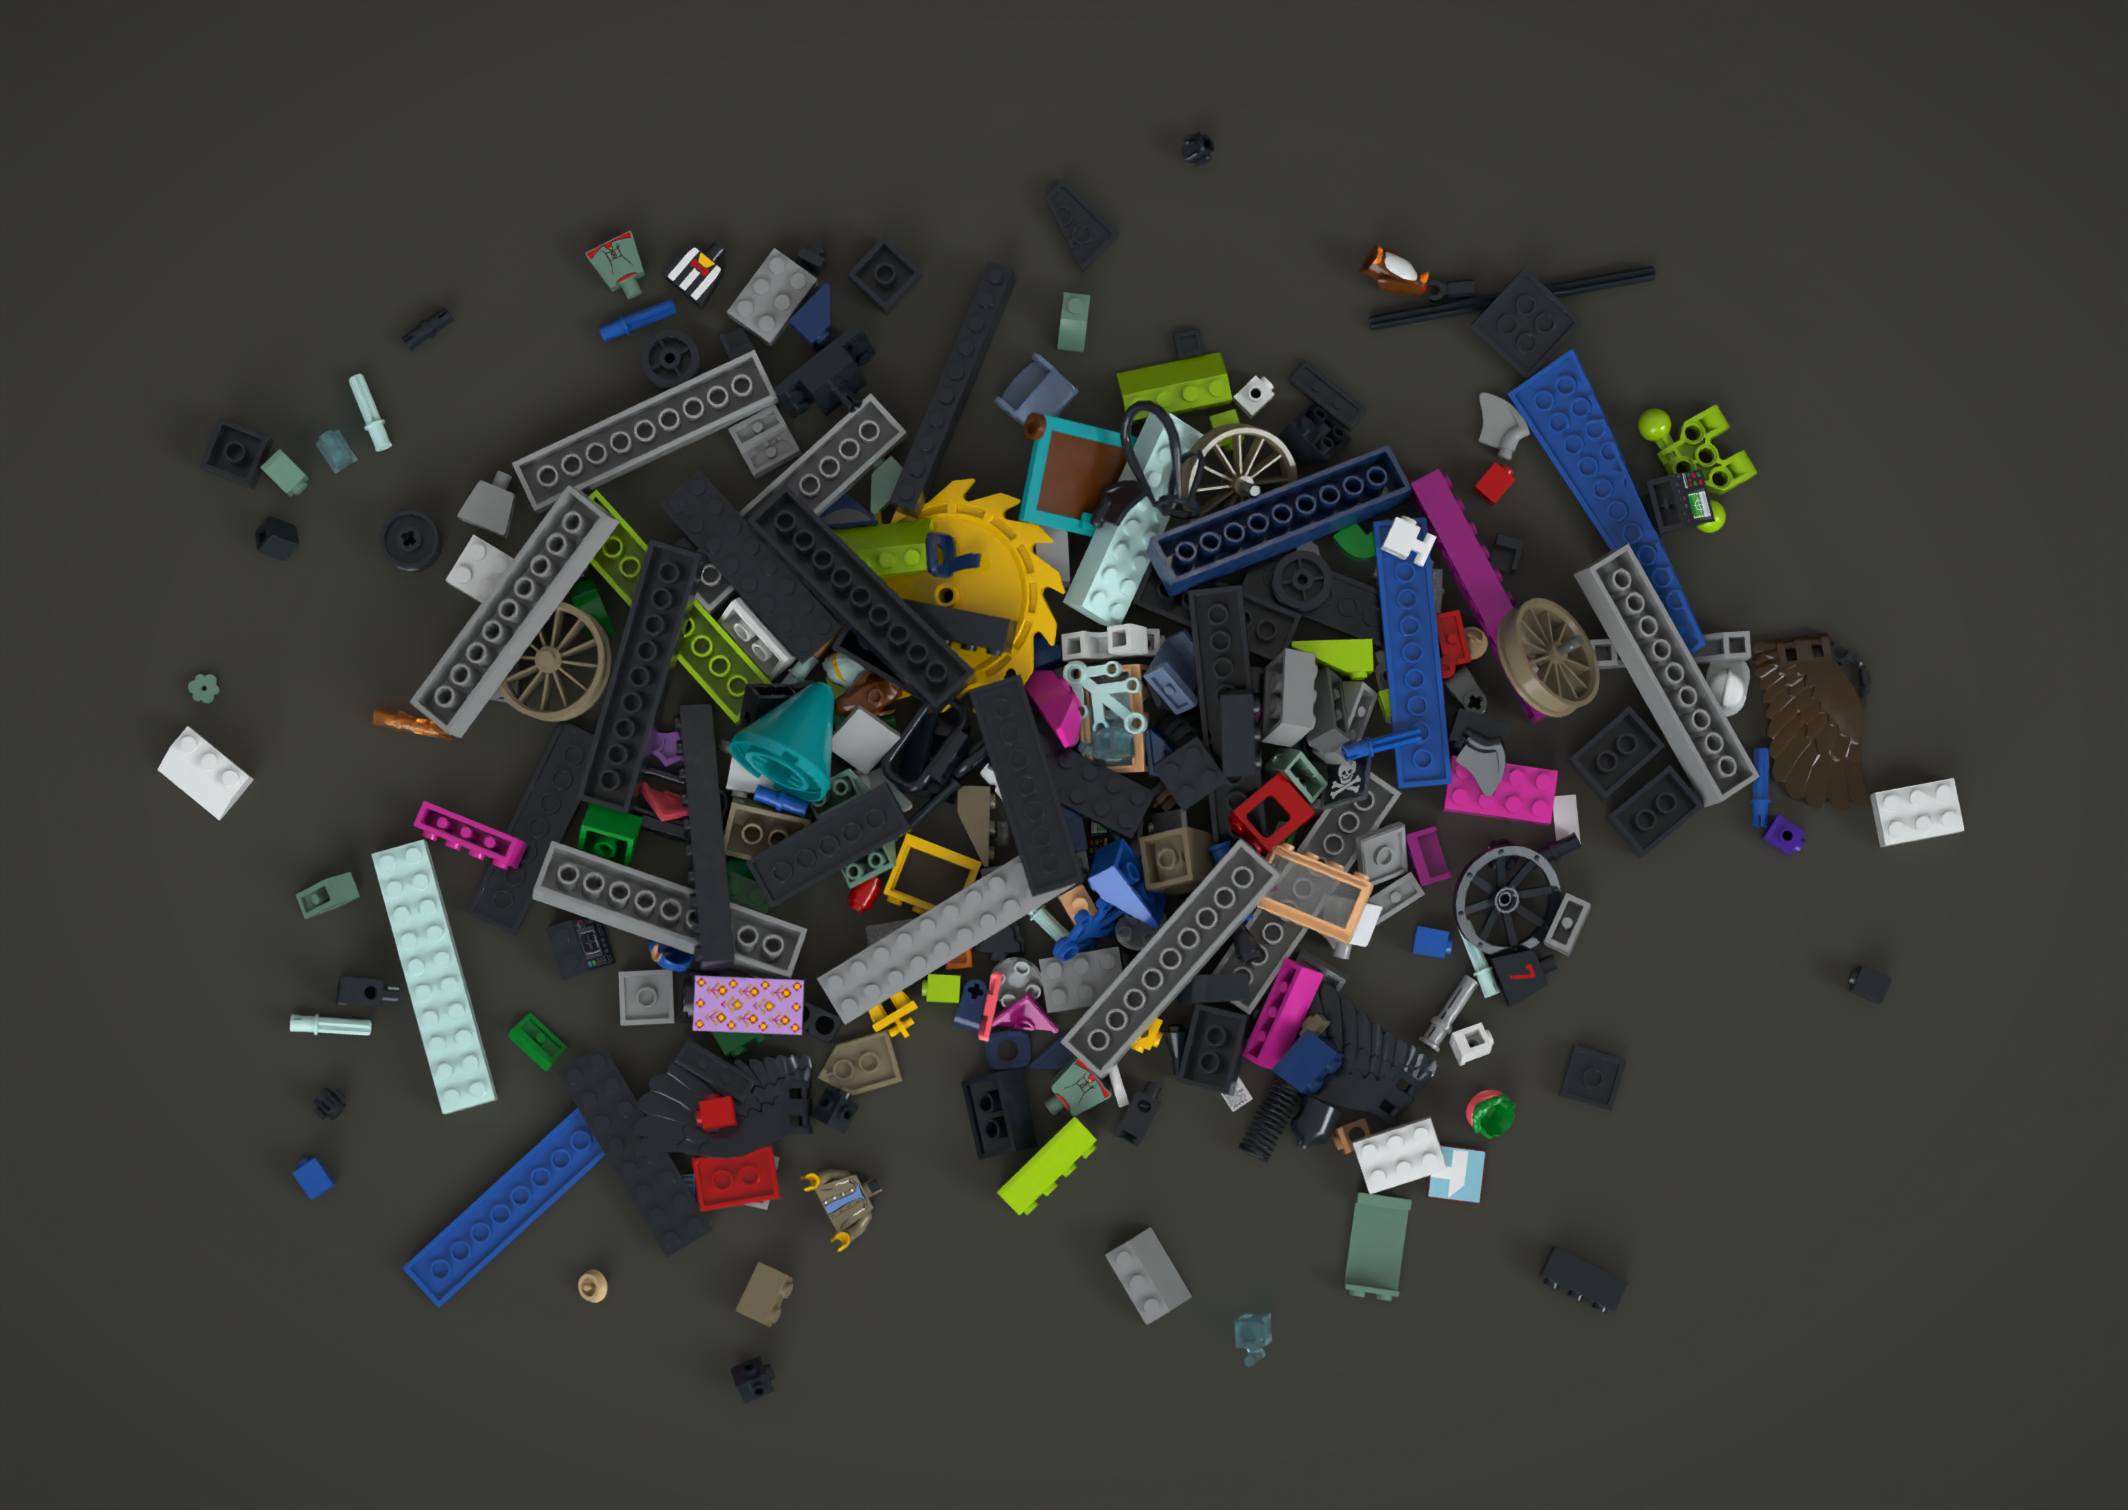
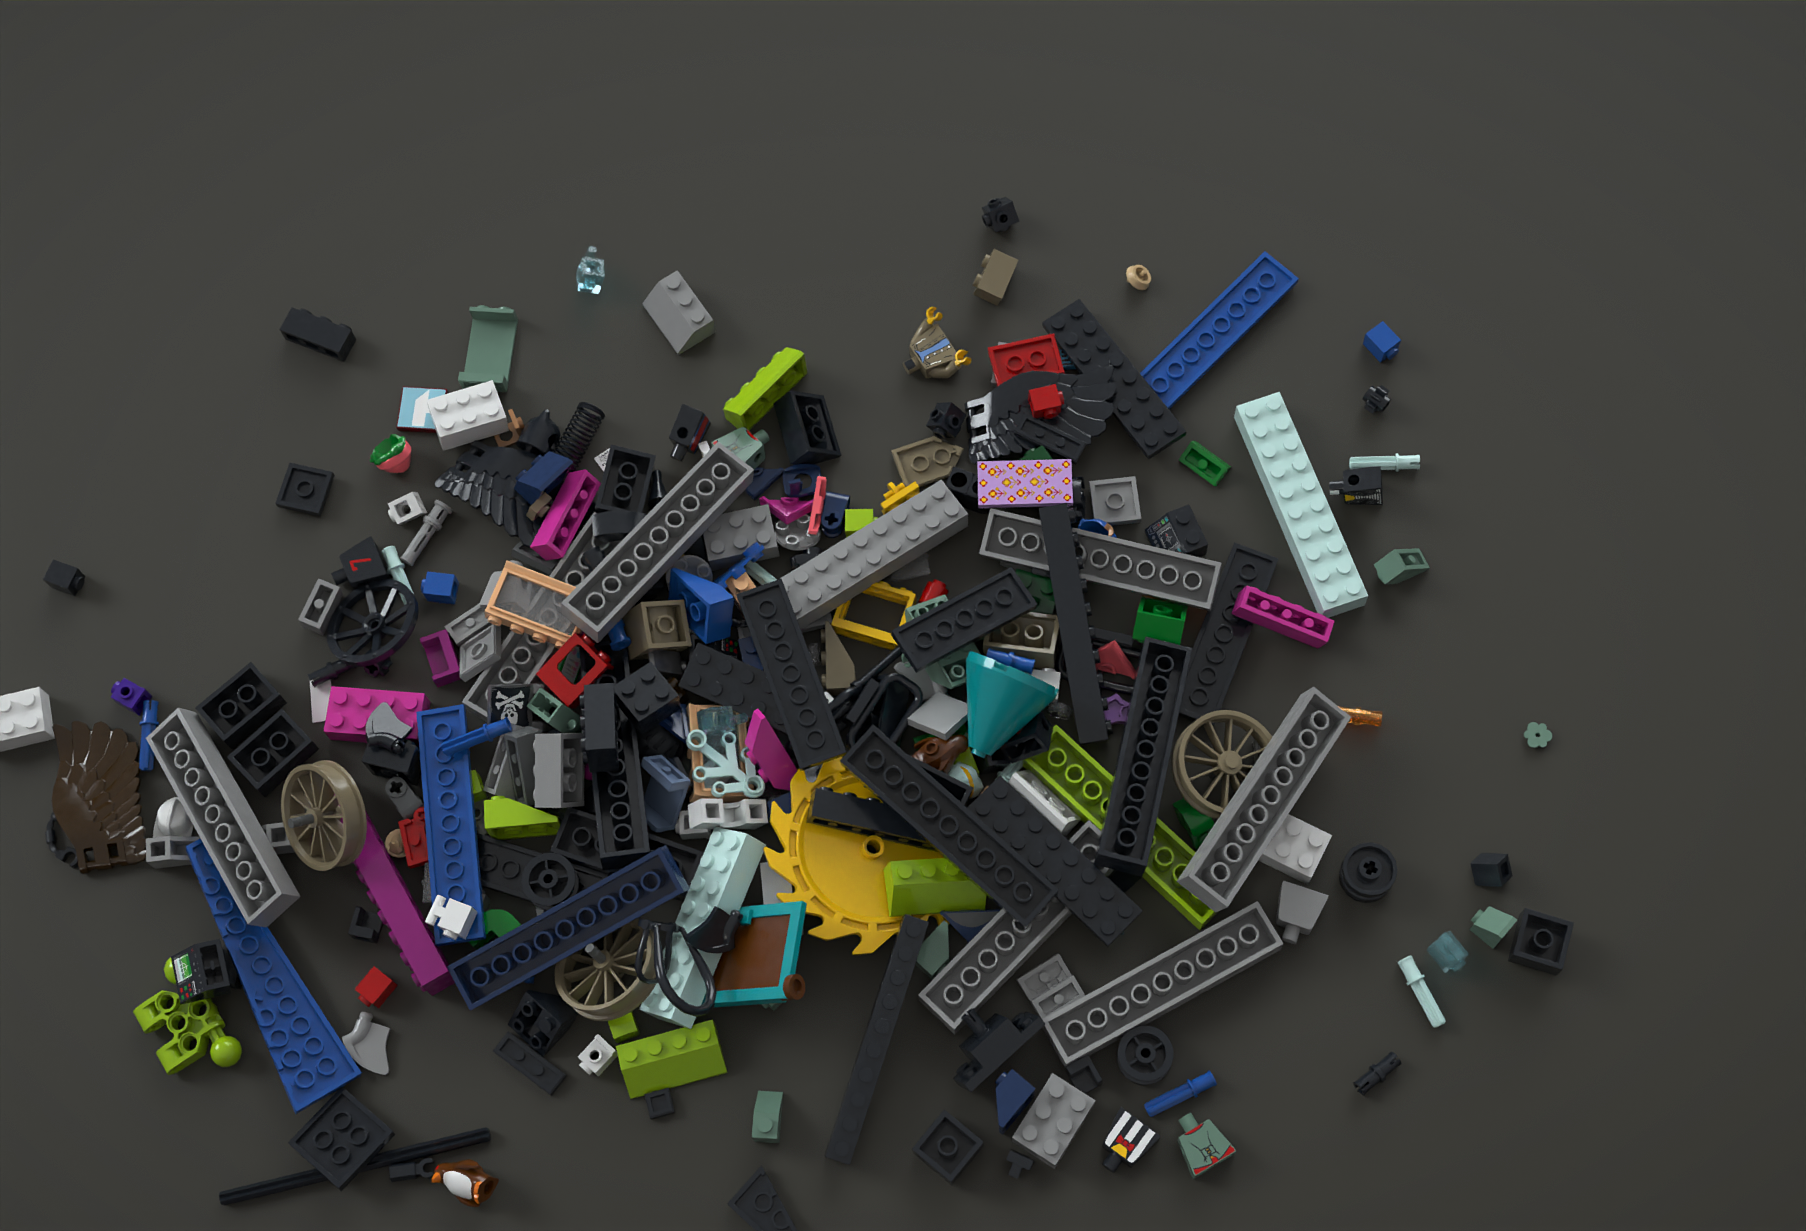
camera: 170 degrees left, 15 degrees down
(204, 773) = (1524, 663): white slope -> none
(950, 561) = (870, 874): dark blue piece -> none
(1036, 390) = (800, 1042): sand blue piece -> none

